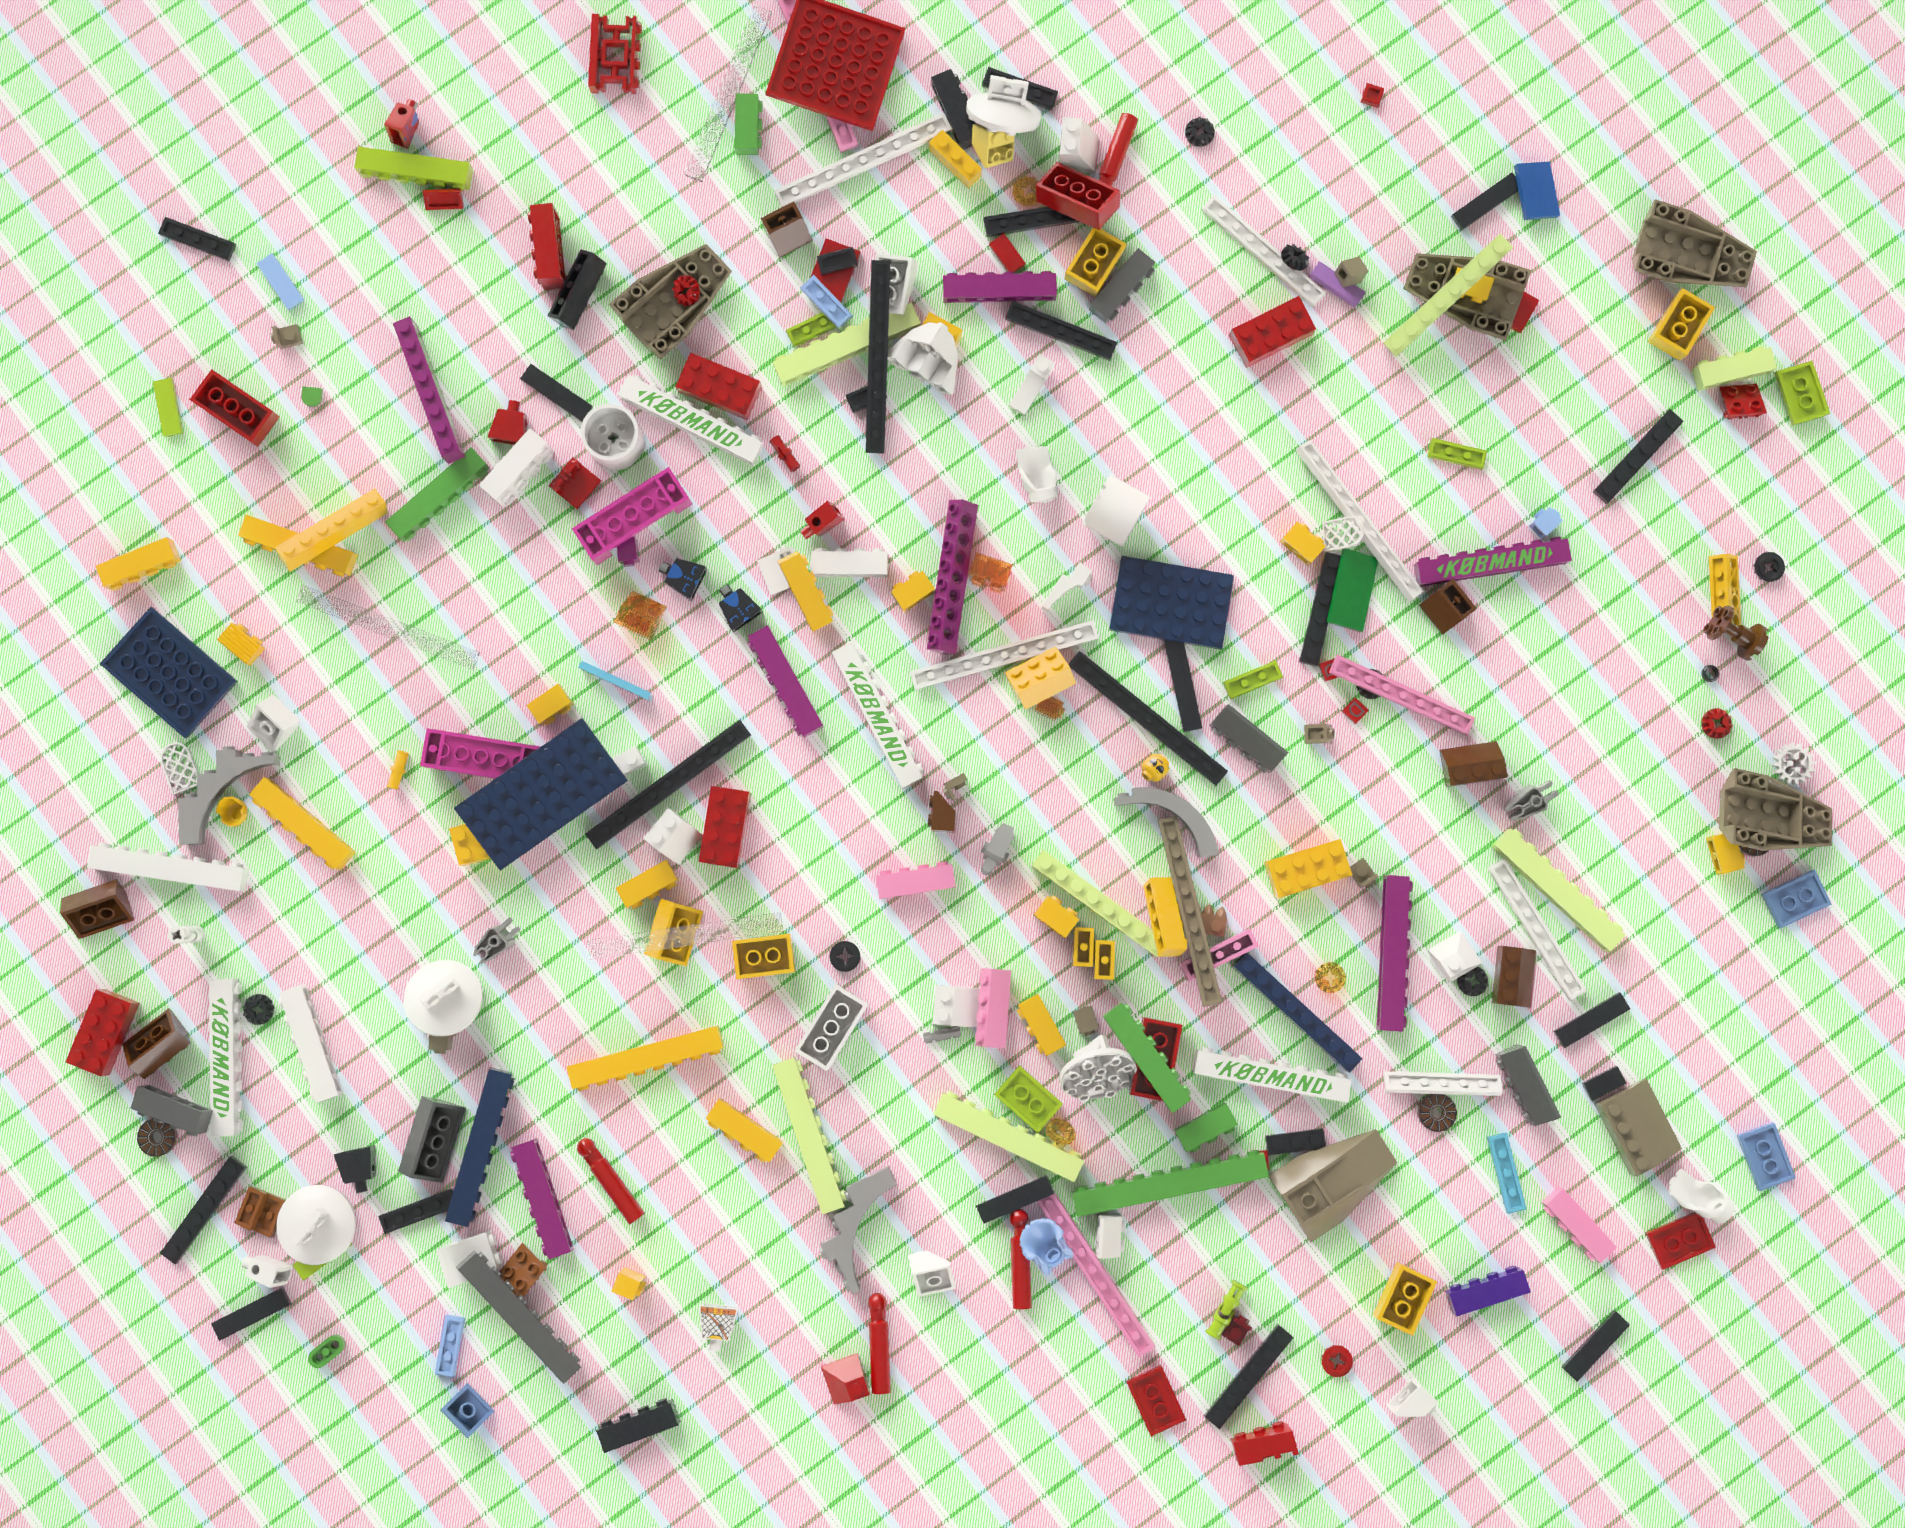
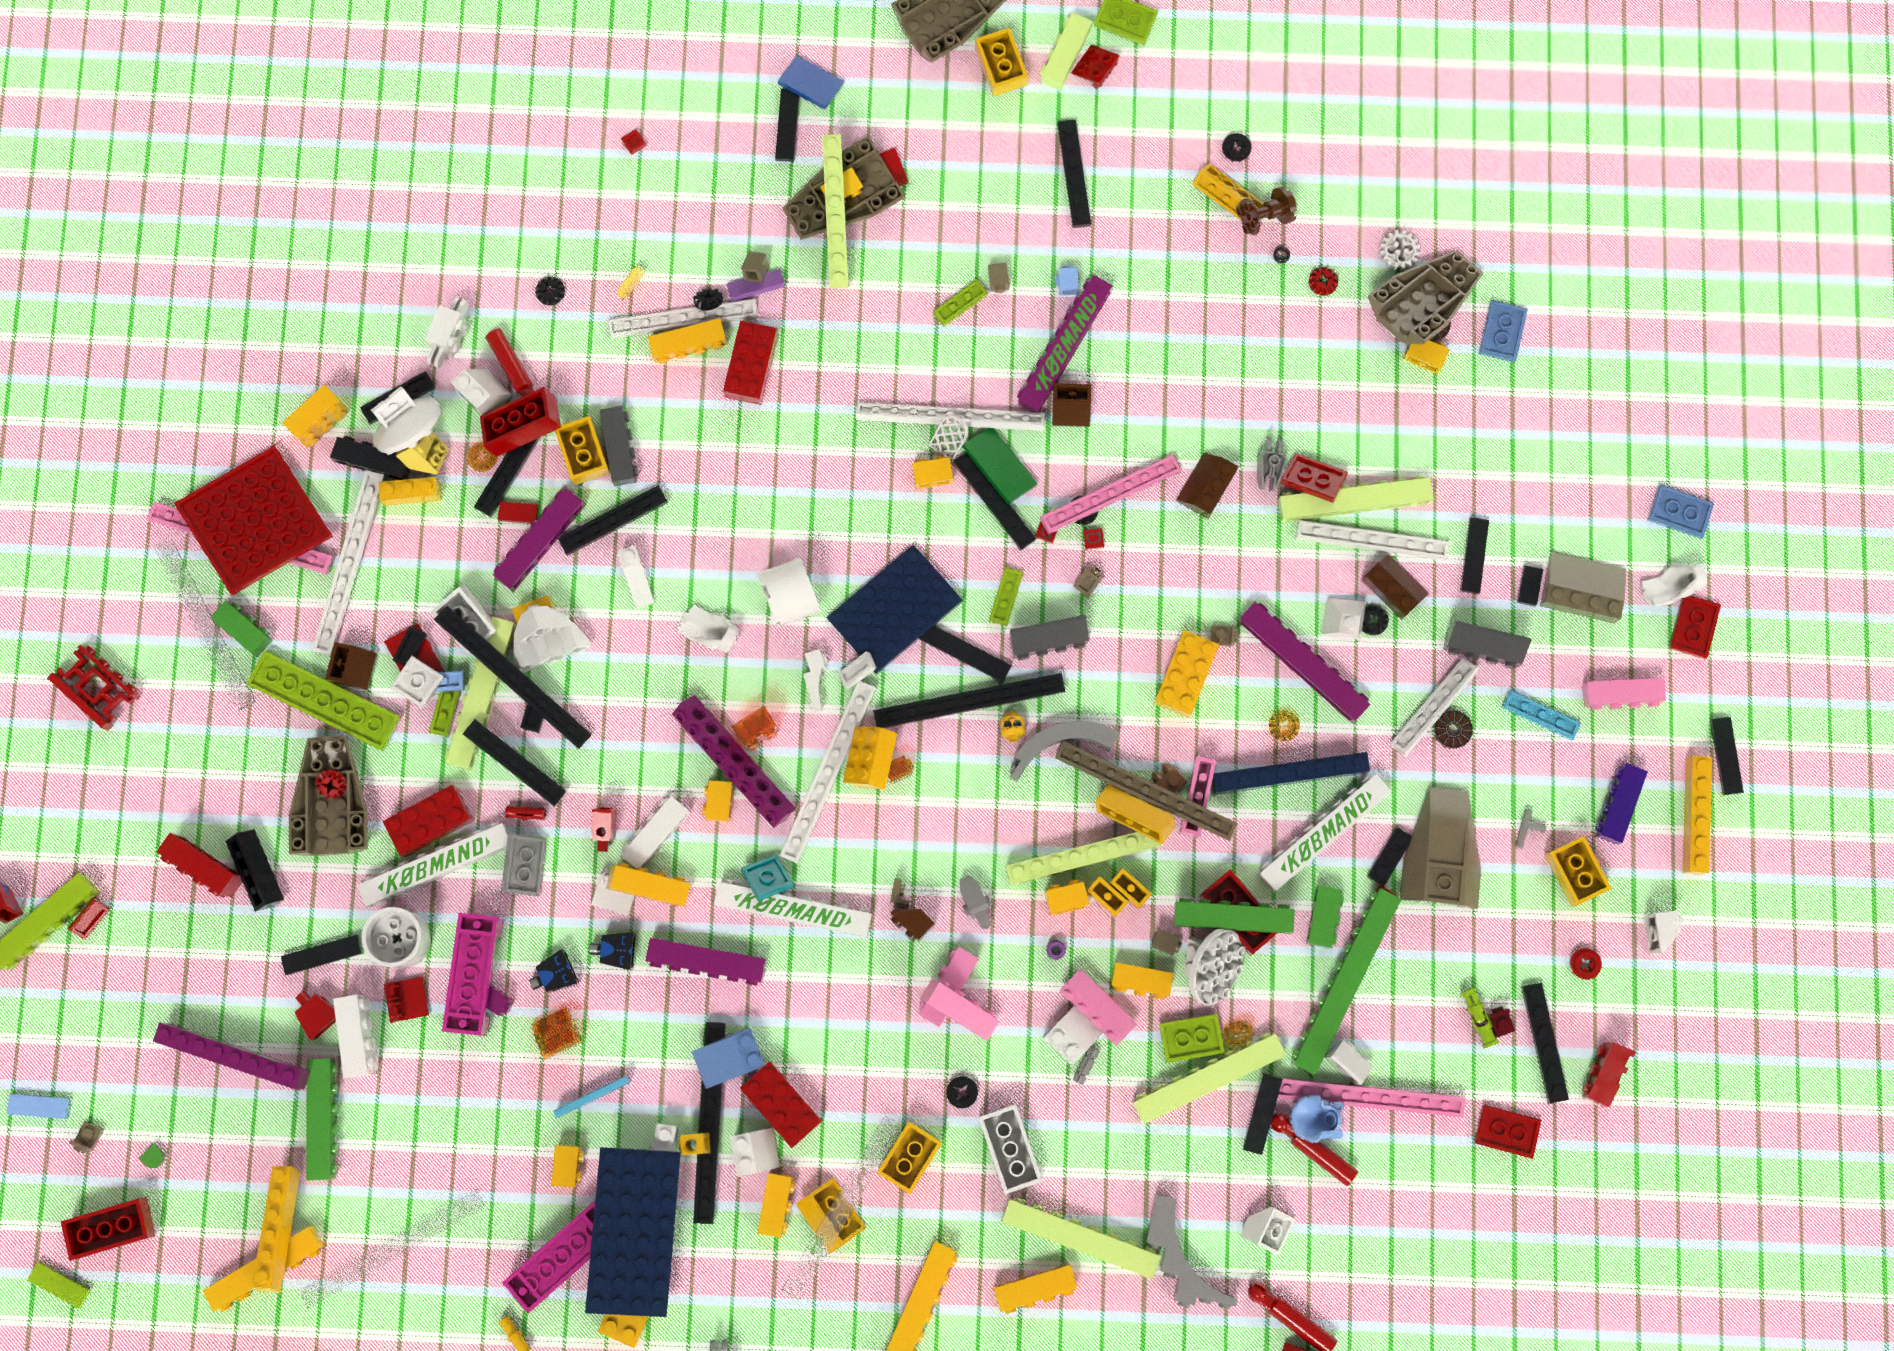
camera: 50 degrees left, 5 degrees down
(649, 789) = (702, 1144): none -> yellow brick
(726, 758) = (728, 1058): none -> medium blue slope
(744, 232) = (323, 700): none -> lime plate
(744, 485) = (523, 865): none -> light grey tile
(815, 289) = (417, 682): none -> white tile
(815, 412) = (514, 762): none -> black plate
(885, 675) = (767, 877): none -> teal tile
(904, 903) = (960, 1009): none -> bright pink brick
(952, 39) = (315, 416): none -> yellow brick
(1015, 945) = (1059, 944): none -> medium lavender plate
(1099, 613) = (857, 670): none -> white tile
(1101, 81) = (446, 332): none -> white brick
(1248, 269) = (687, 340): none -> yellow brick
(1257, 187) = (630, 282): none -> light yellow tile
(1408, 1228) = (1526, 823): none -> light grey piece
(1502, 466) = (998, 277): none -> dark tan brick
(1528, 1358) = (1697, 815): none -> yellow brick
(1548, 843) = (1314, 477): none -> red tile

